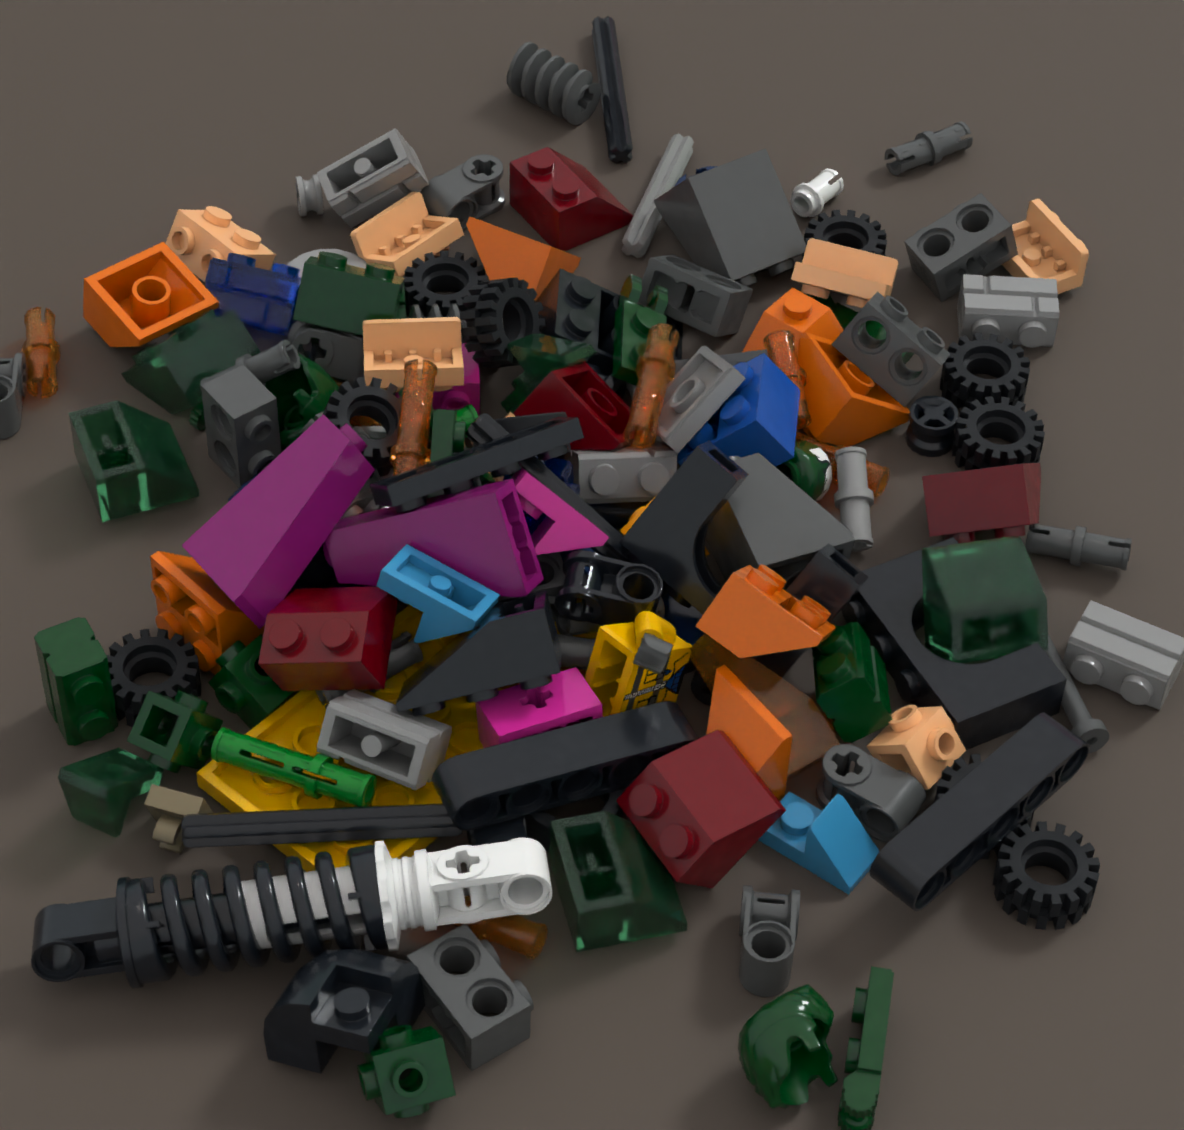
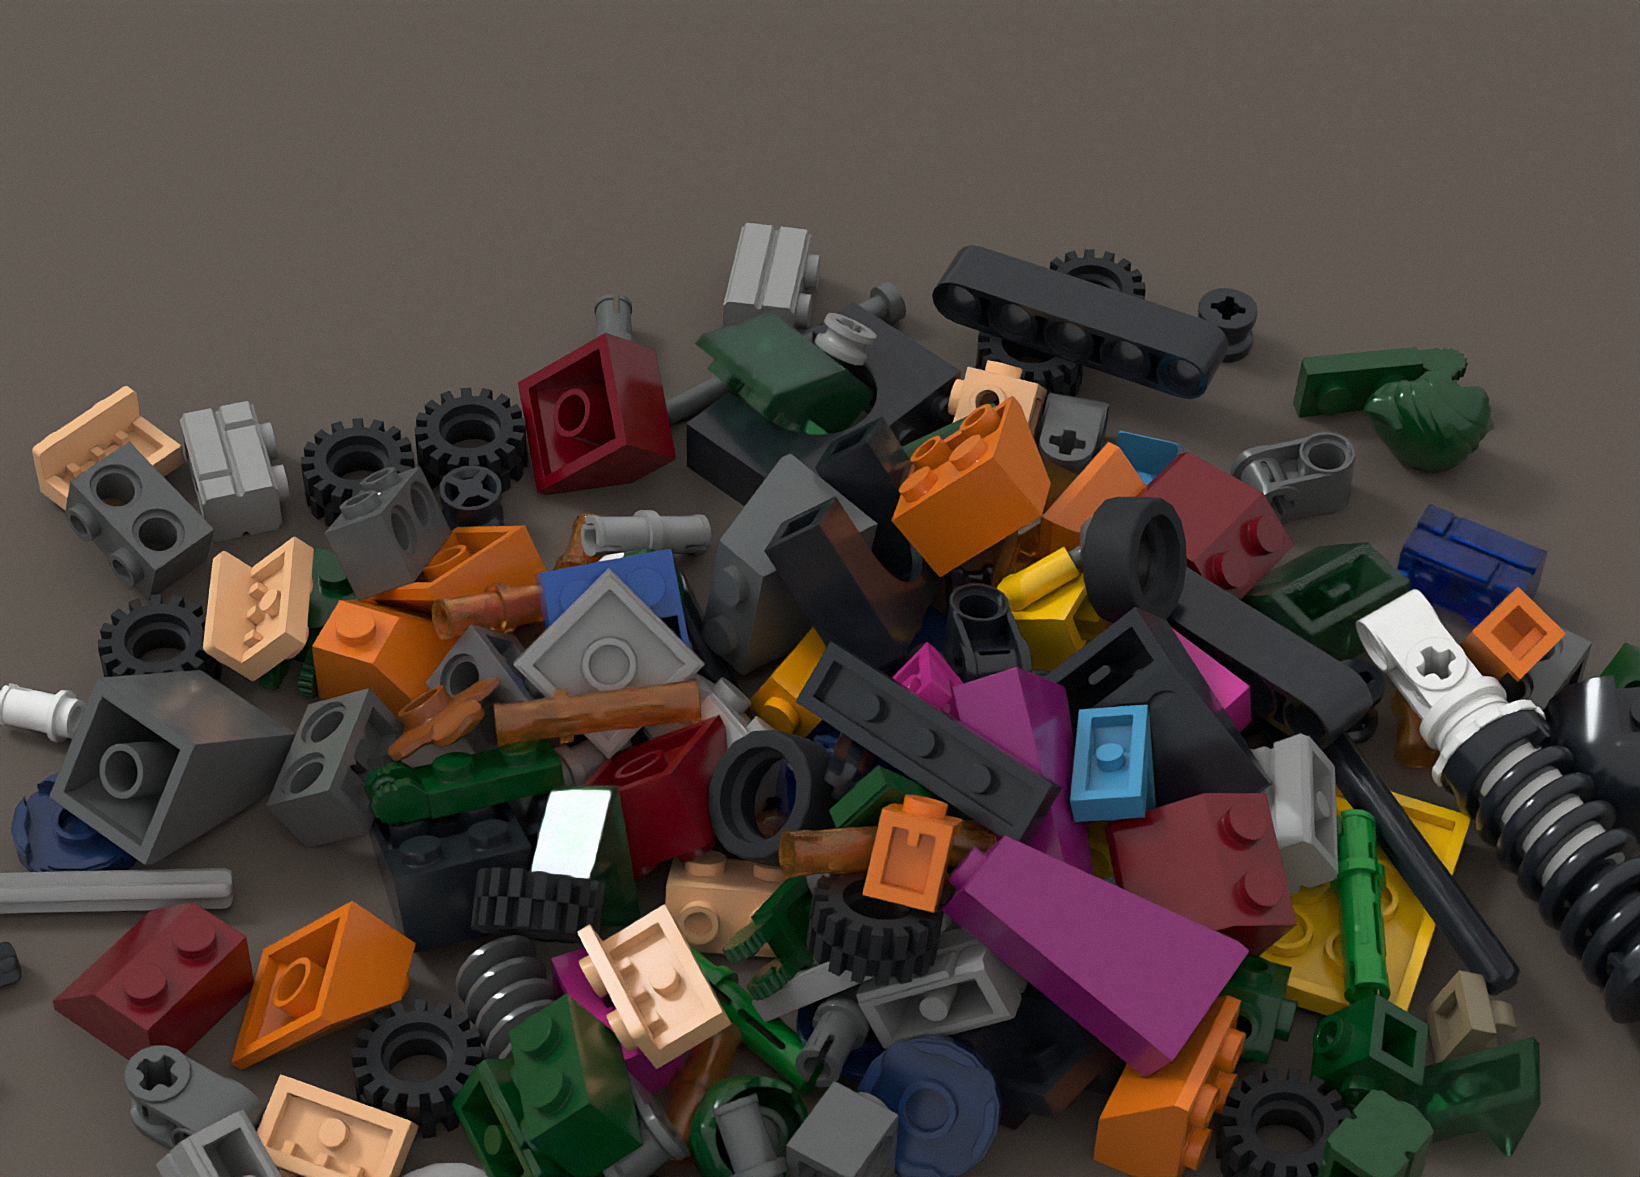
camera: 110 degrees left, 0 degrees up
(393, 420) = (912, 853): none -> orange bracket
(465, 926) = (1511, 638): none -> orange brick
(610, 1016) = (1467, 564): none -> clear blue brick
(653, 654) = (1134, 557): none -> black tyre
(701, 331) = (440, 717): none -> dark orange plate
(988, 980) = (1235, 315): none -> black wheel
(1009, 625) = (845, 339): none -> light grey bush

